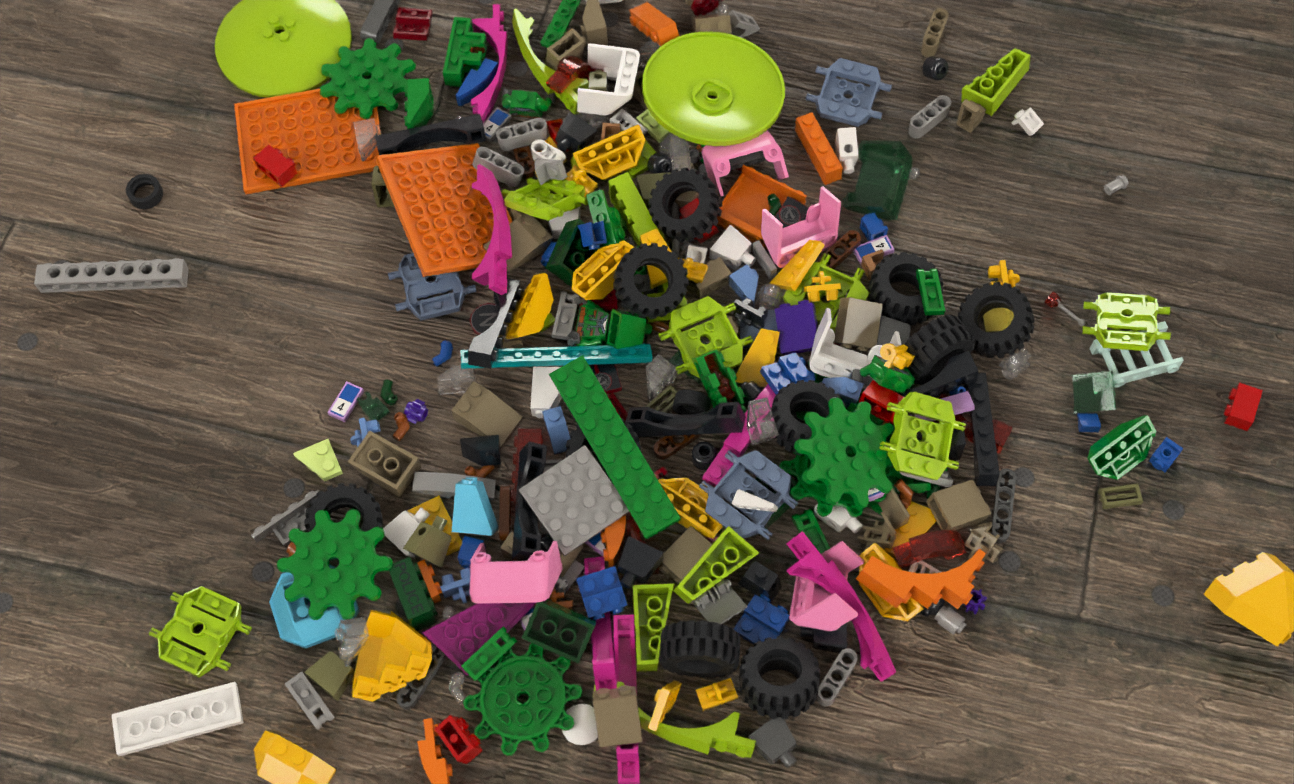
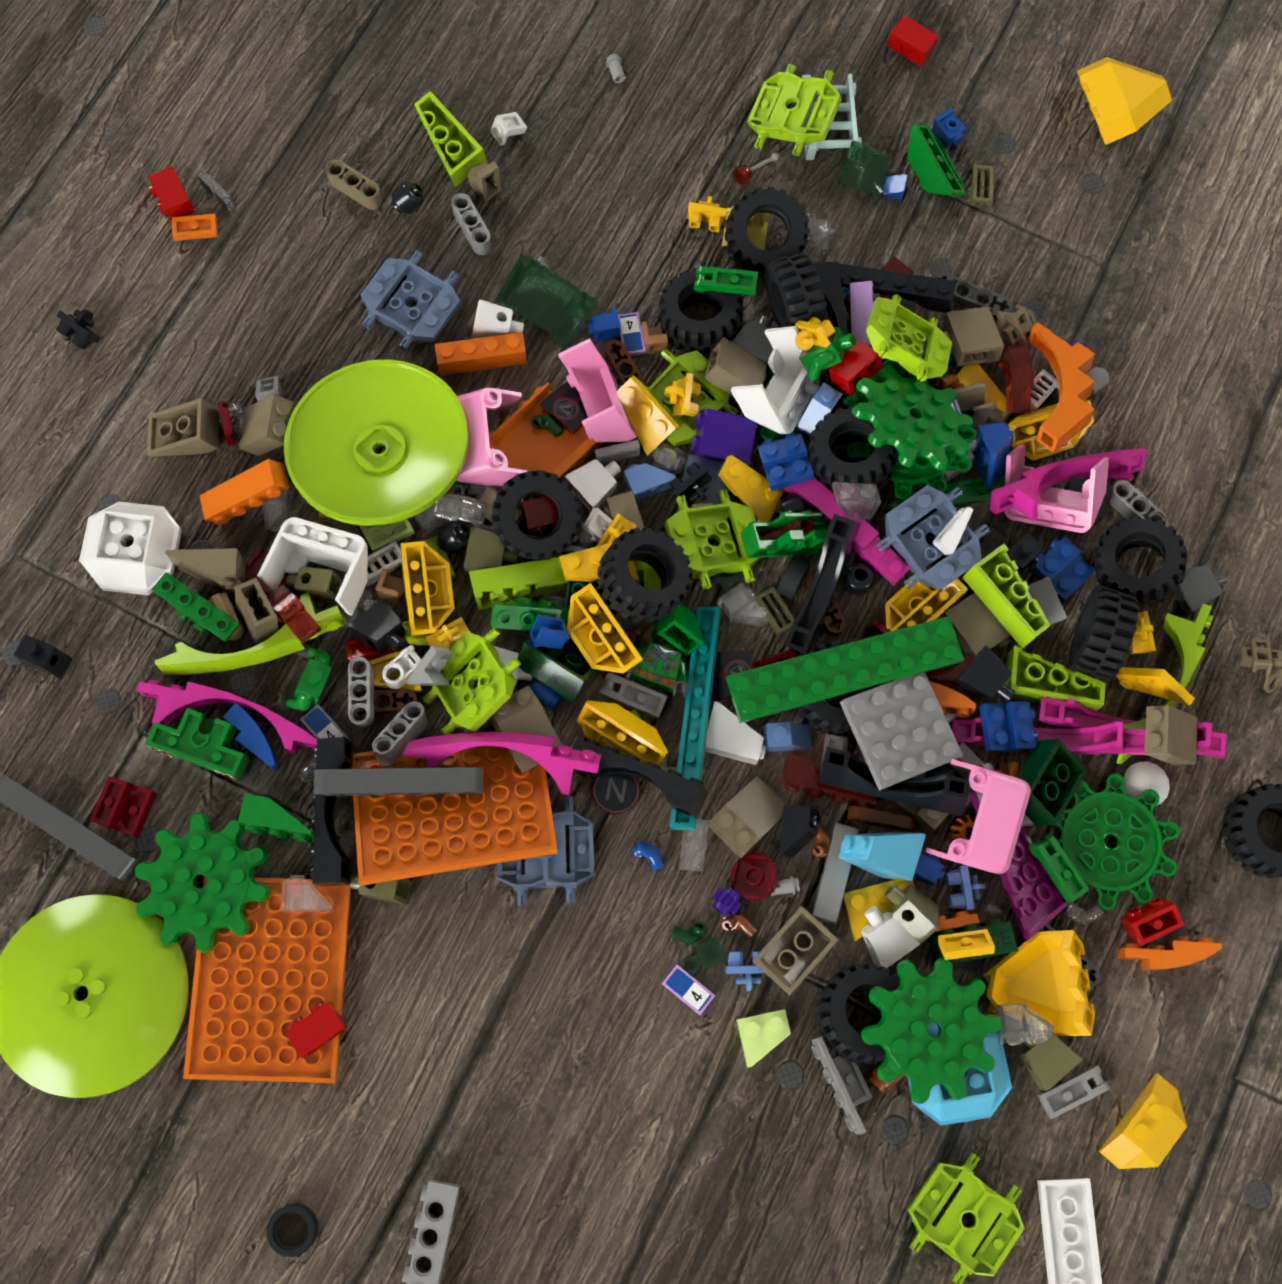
camera: 85 degrees left, 10 degrees up
(403, 573) = (966, 944): none -> yellow plate
(438, 456) = (787, 886): none -> light grey pin
(439, 428) = (754, 877): none -> dark red tile
(456, 167) = (398, 781): none -> dark grey beam
(853, 532) = (991, 451): none -> blue slope

